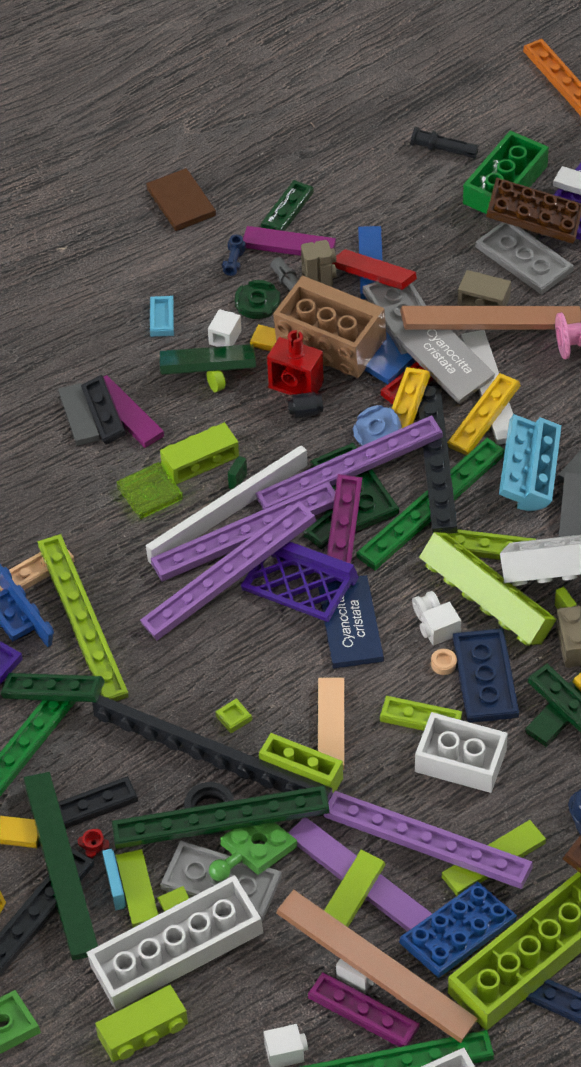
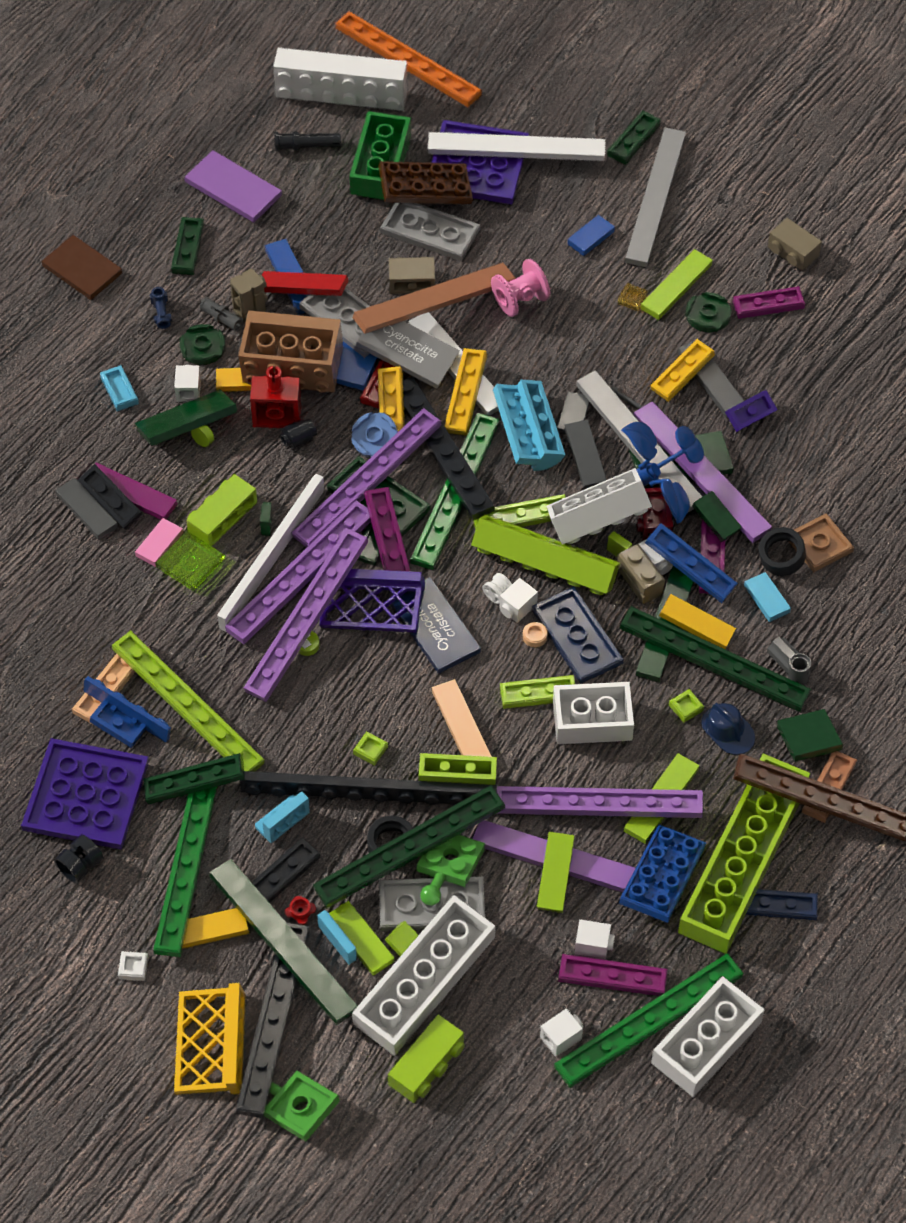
camera: 25 degrees left, 5 degrees up
(118, 751) = (283, 817): none -> medium azure bracket
(129, 463) = (158, 541): none -> bright pink tile
(223, 601) = (311, 645): none -> lime tile
(280, 241) = (201, 280): magenta tile -> none
(354, 165) = (233, 186): none -> medium lavender tile
(377, 966) = (612, 931): nougat tile -> none
(500, 95) = (340, 79): none -> white brick
(561, 778) = (686, 705): none -> lime tile

